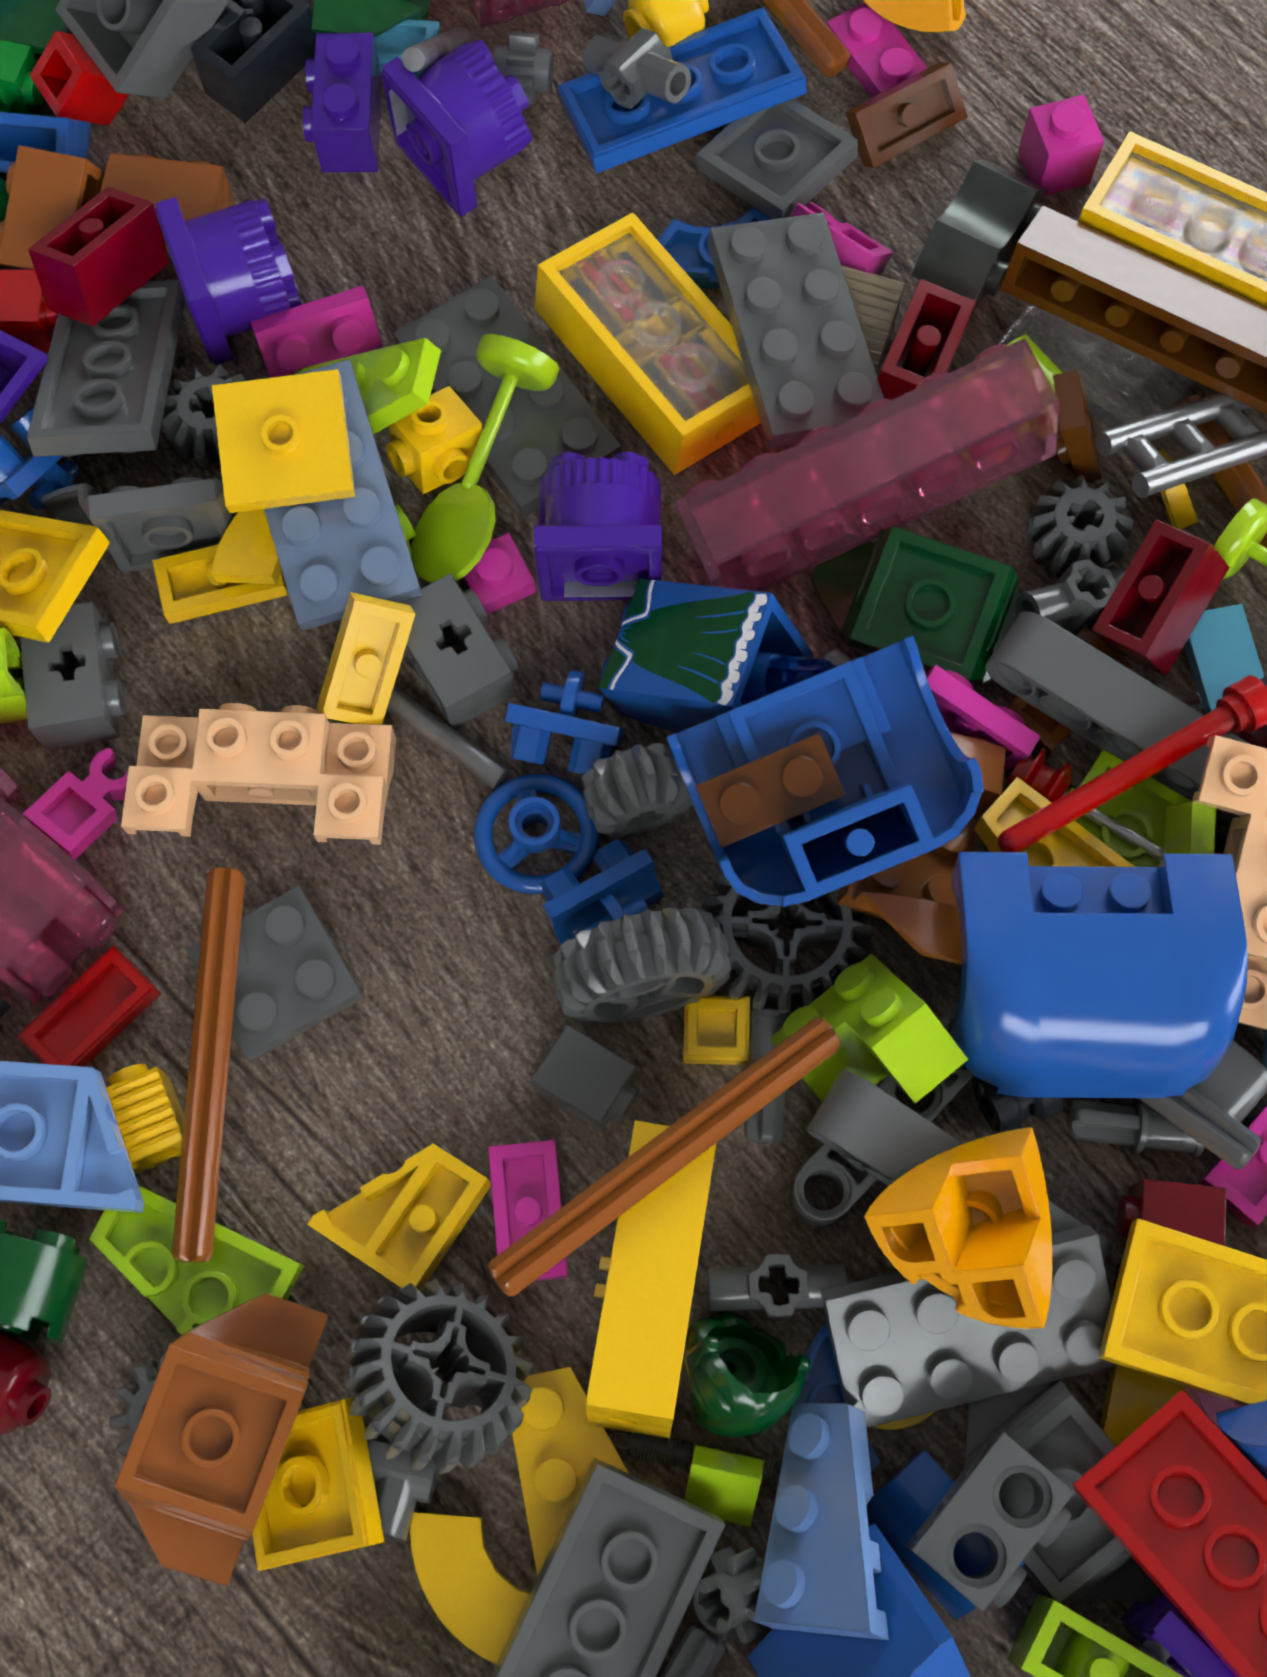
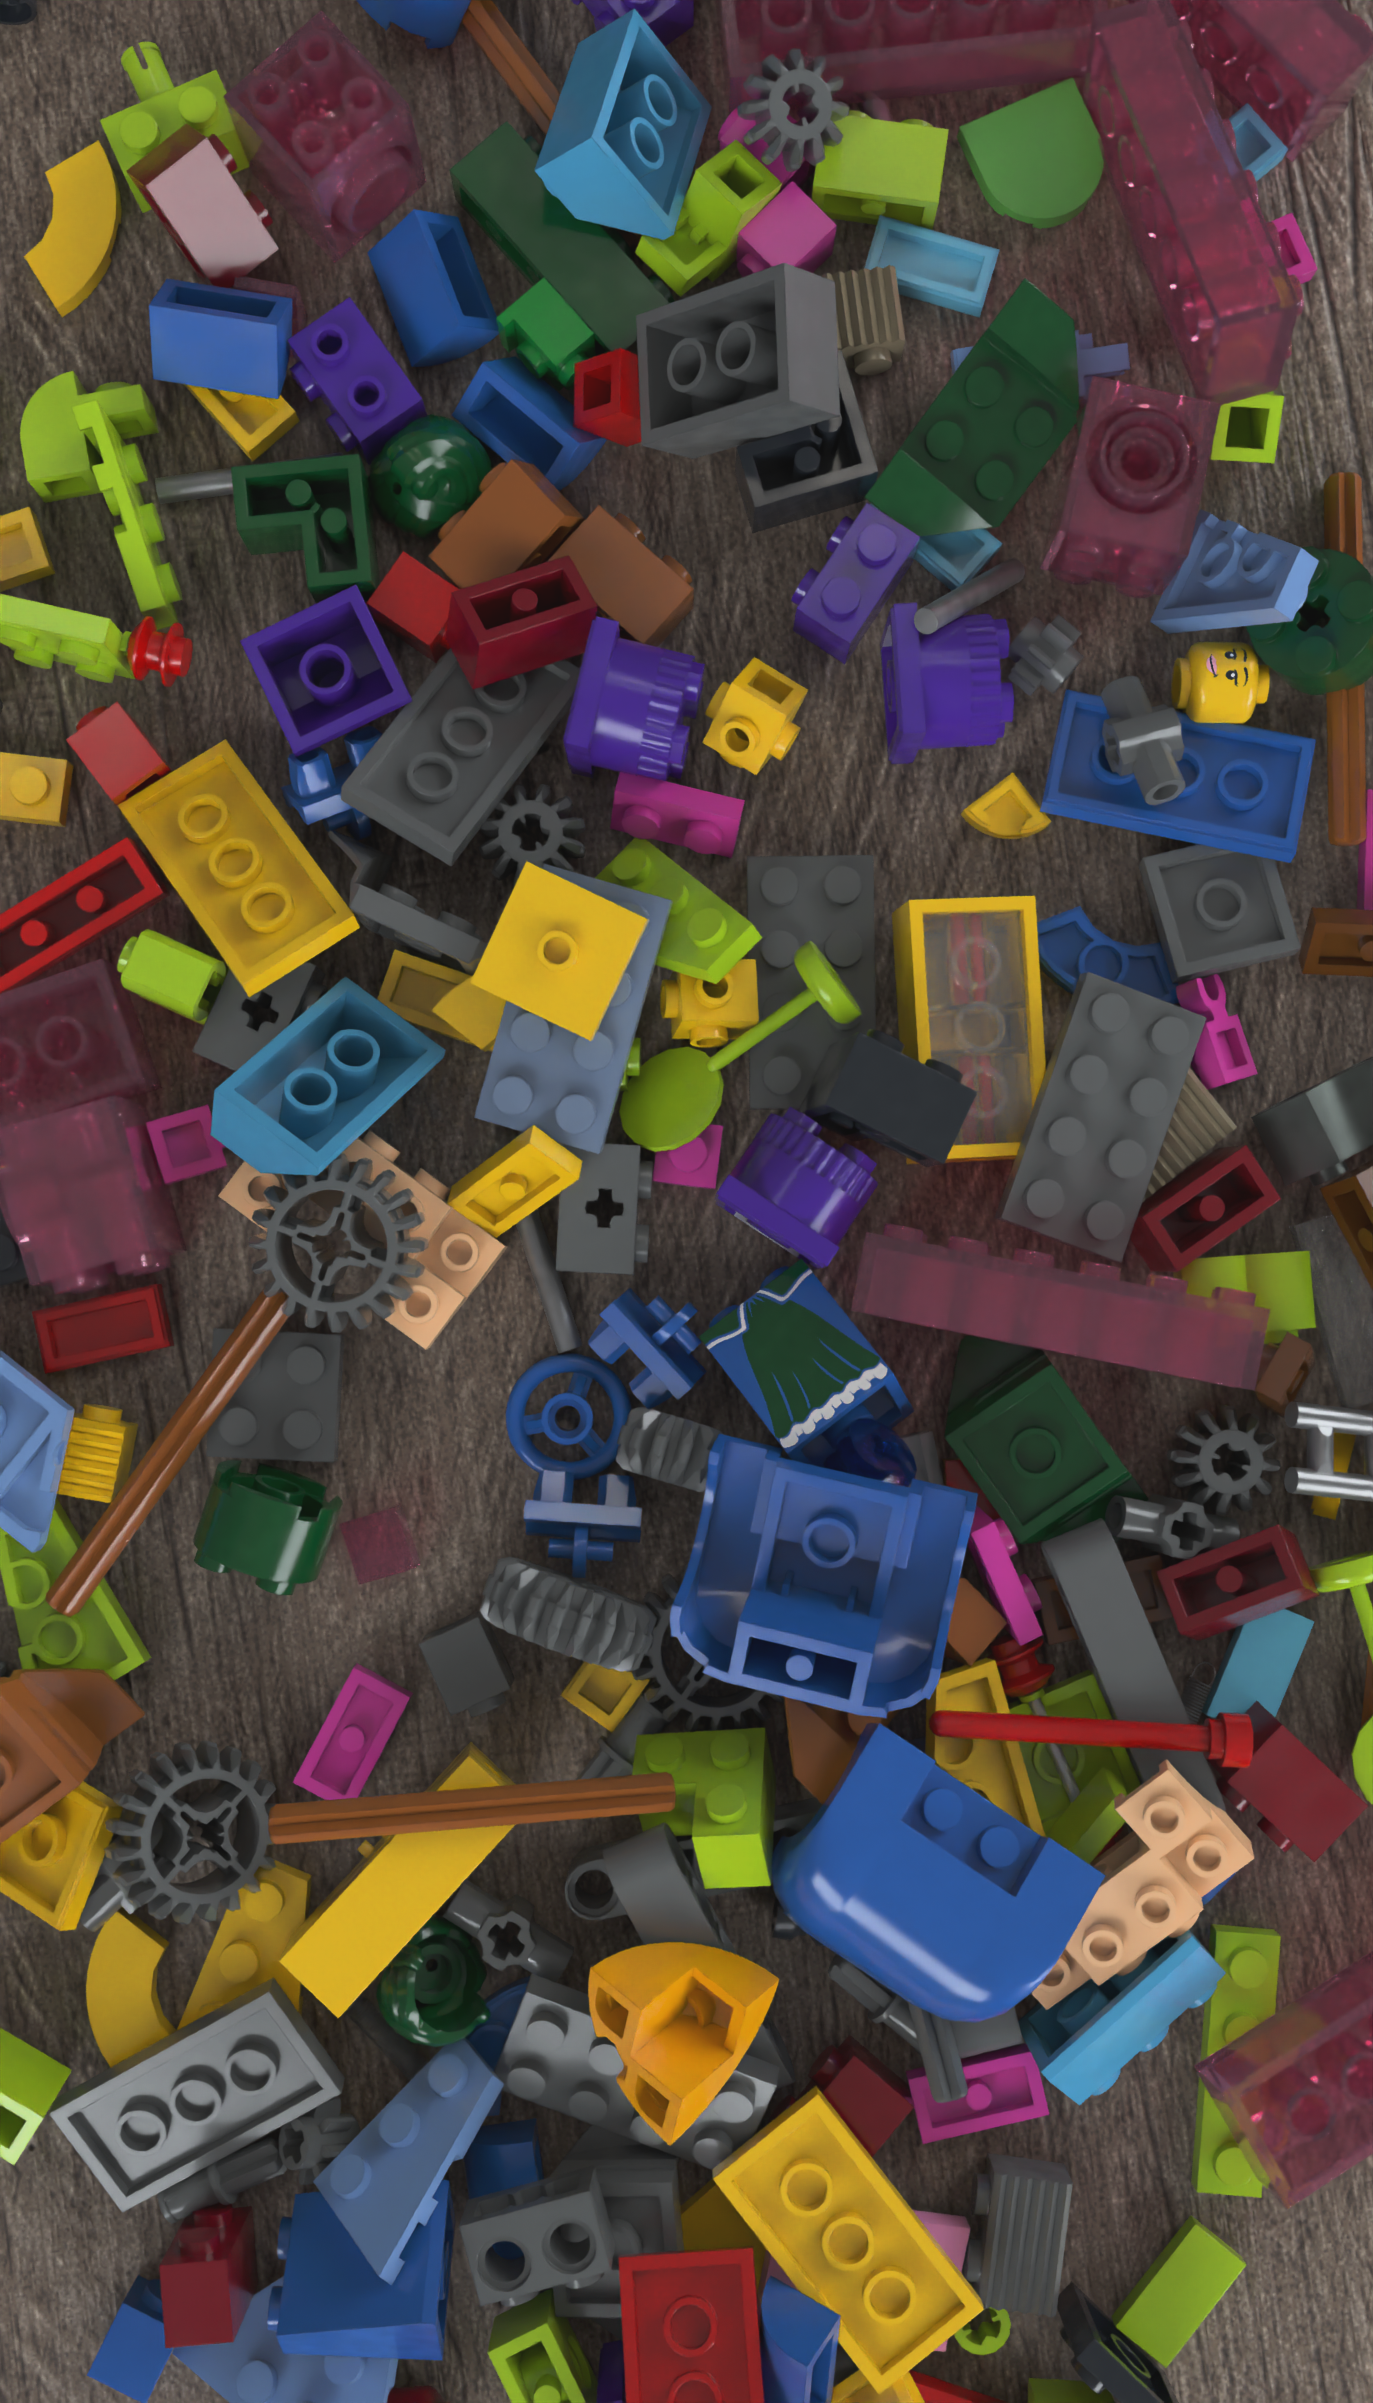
camera: 30 degrees right, 15 degrees up
(145, 675) = (320, 1083): none -> dark azure slope
(219, 789) = (286, 1228): none -> dark grey gear
(331, 1067) = (266, 1526): none -> dark green brick
(335, 210) = (754, 717): none -> yellow brick
(407, 1217) = (253, 1676): yellow wing -> none
(444, 1035) = (380, 1544): none -> clear pink slope
(572, 193) = (1006, 811): none -> yellow tile
(622, 396) = (885, 1096): none -> black brick
(724, 1484) = (365, 2052): lime tile -> none
(770, 790) = (765, 1555): reddish brown plate -> none

